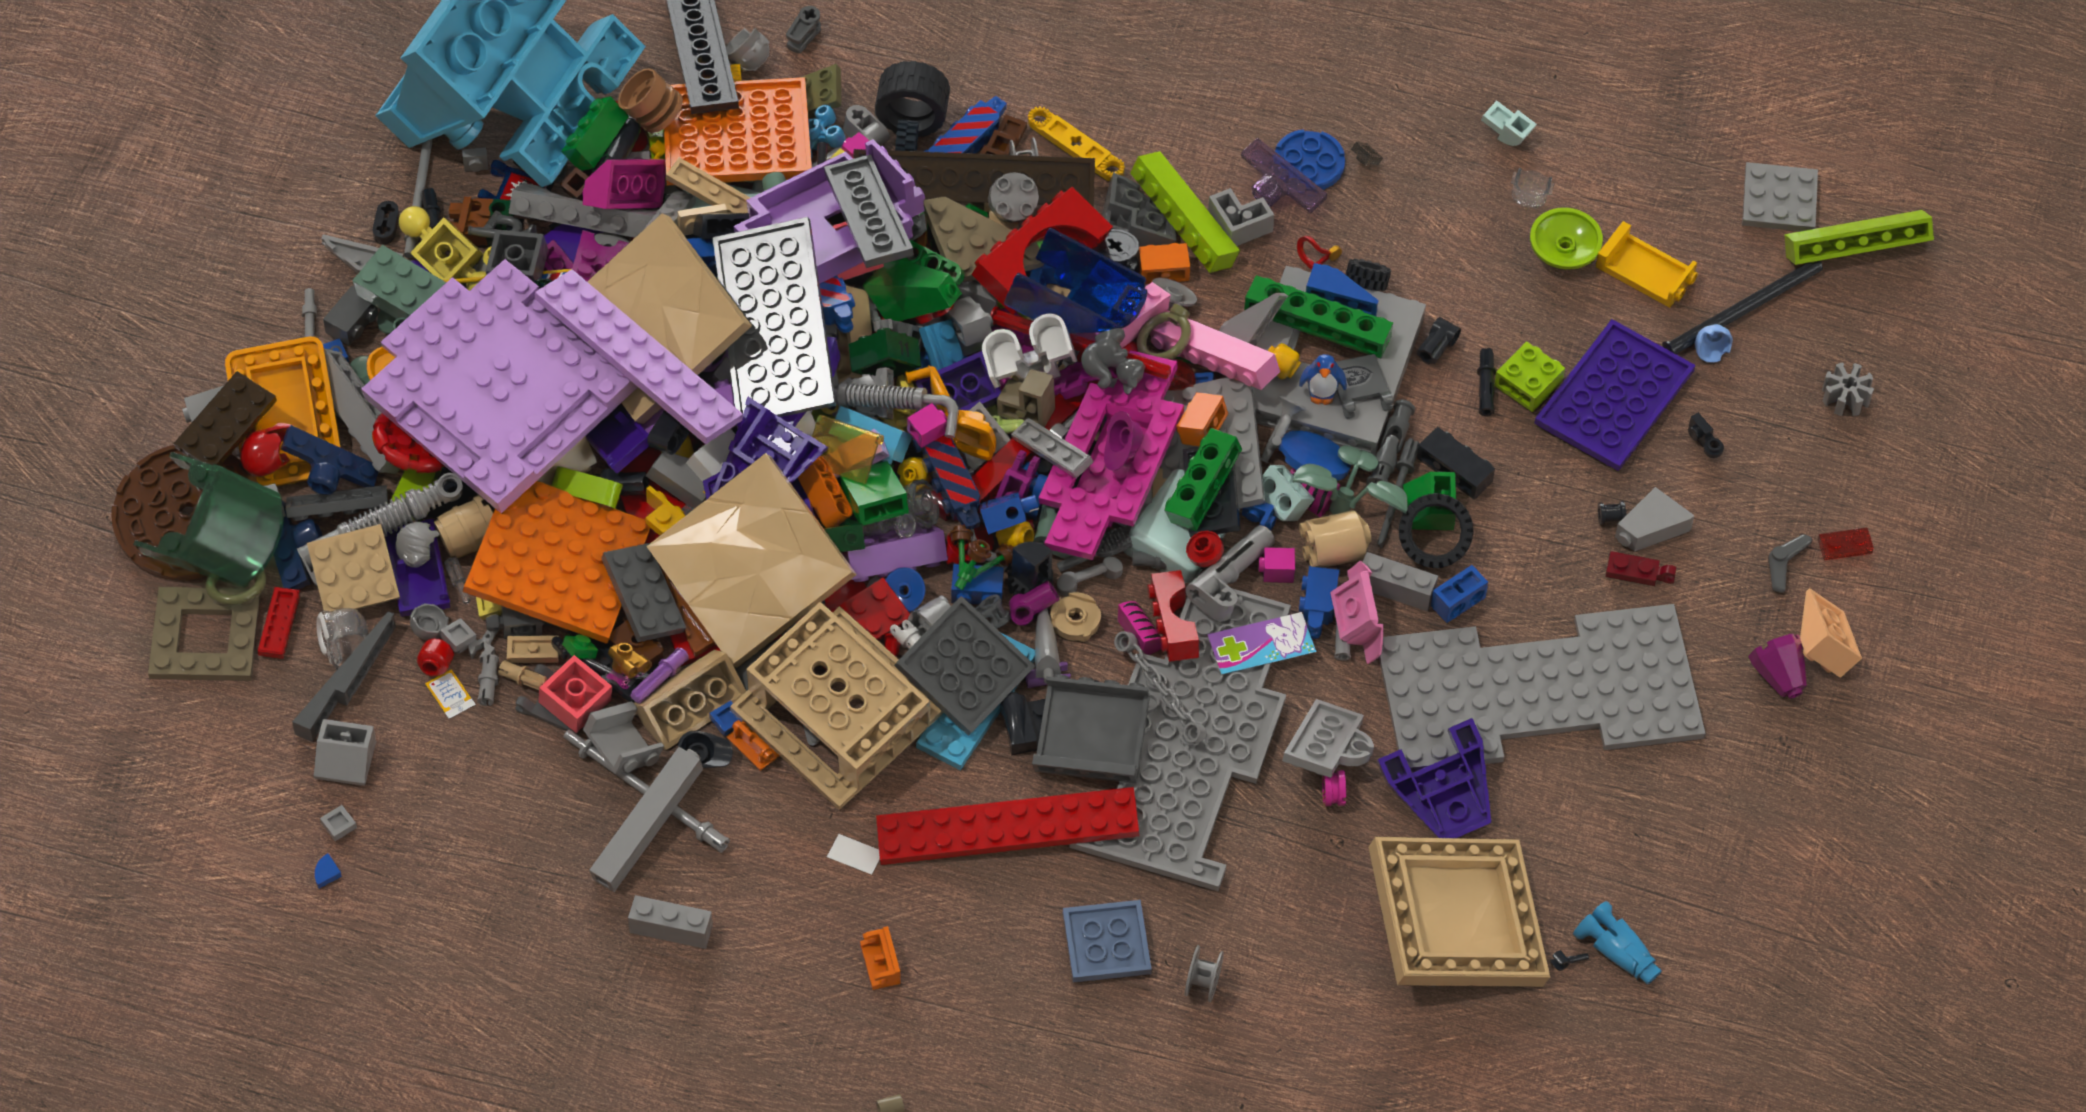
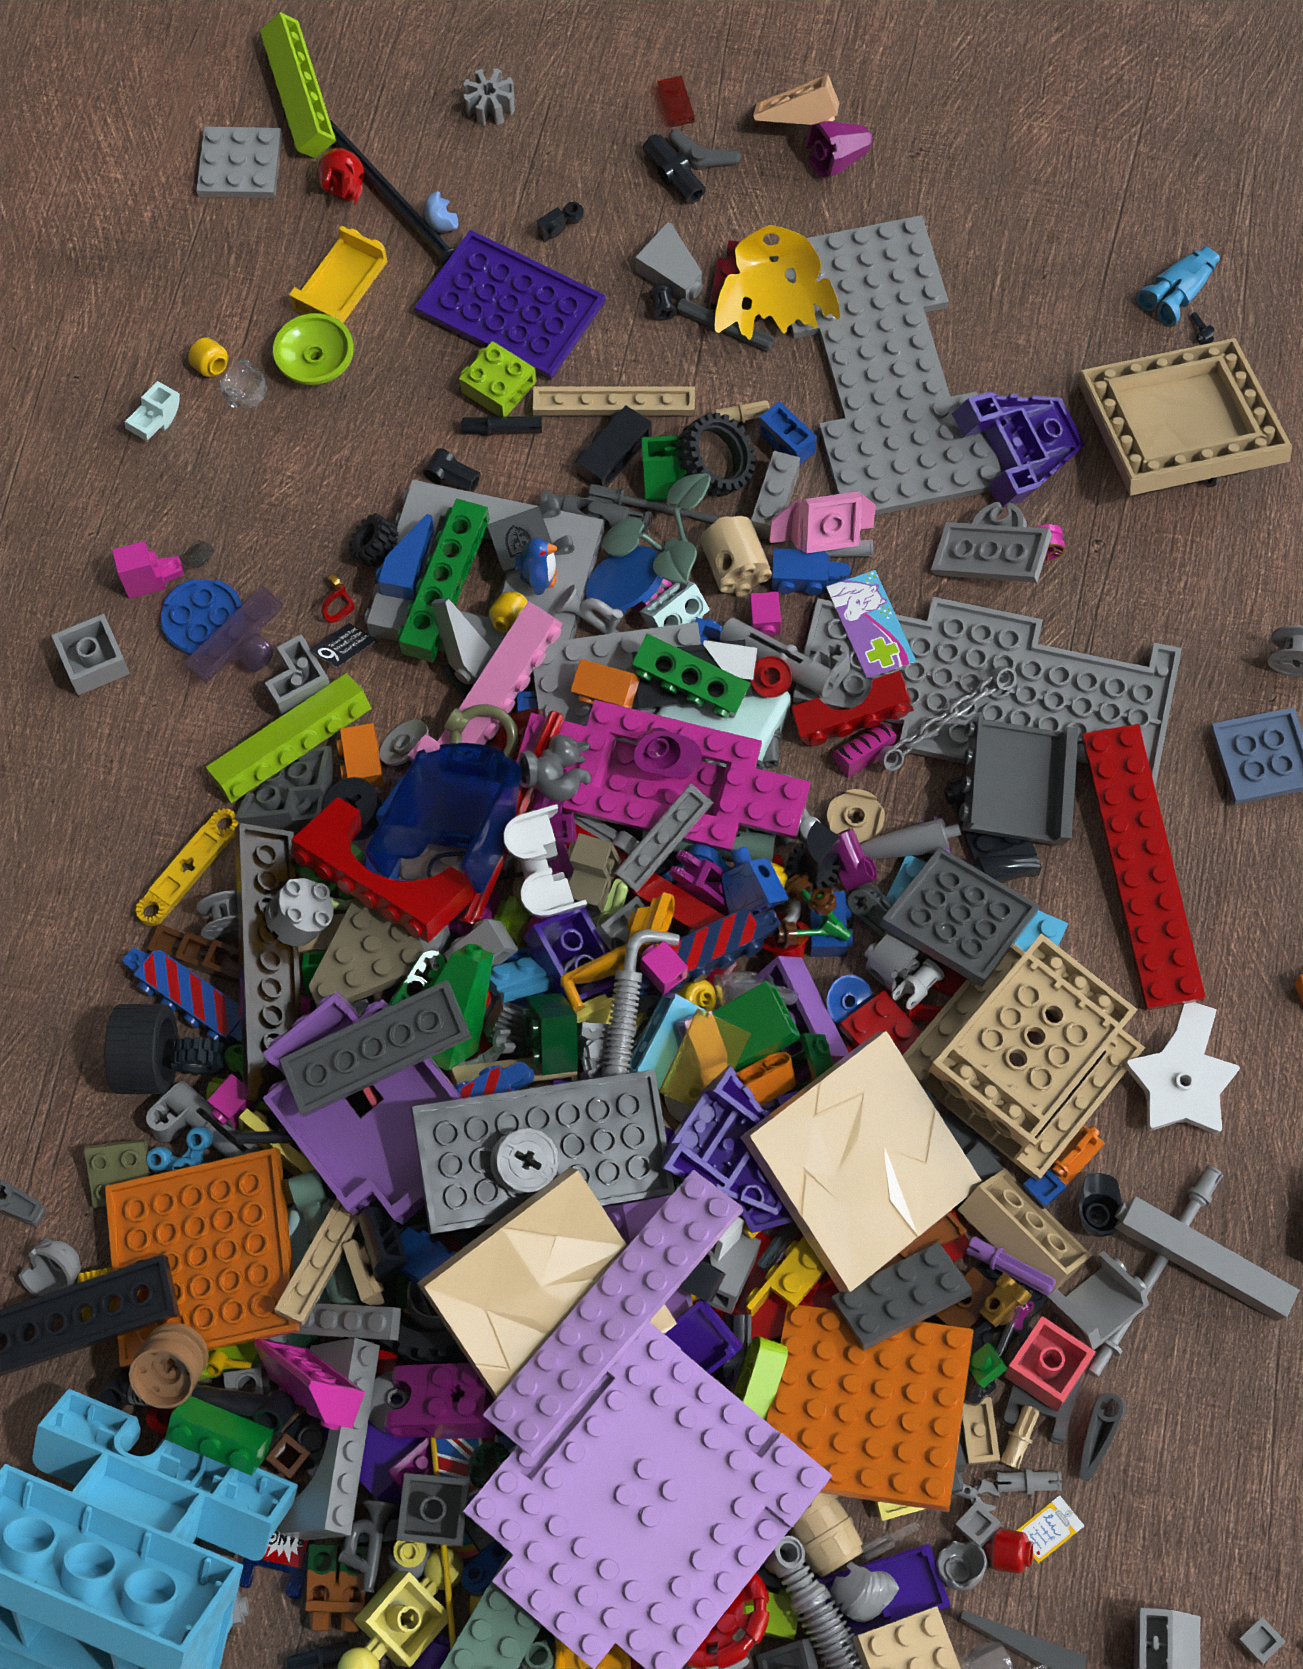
camera: 90 degrees left, 10 degrees up
(520, 730) = (1100, 1433): none -> dark grey piece
(765, 285) = (539, 1152): none -> light grey piece
(805, 844) = (1171, 1101): none -> white plate
(1219, 518) = (733, 658): none -> white sticker
(1267, 249) = (343, 645): none -> black sticker
(1272, 76) = (90, 654): none -> light grey brick
(1349, 111) = (143, 571): none -> dark pink hinge
(1490, 566) = (745, 411): none -> tan axle
(1507, 468) = (608, 400): none -> tan plate
(1565, 165) = (208, 357): none -> yellow head
(1588, 563) = (707, 317): none -> dark grey axle
(1625, 594) = (769, 287): none -> yellow piece
(1758, 268) = (341, 174): none -> red helmet
(1763, 532) = (673, 168): none -> black piece

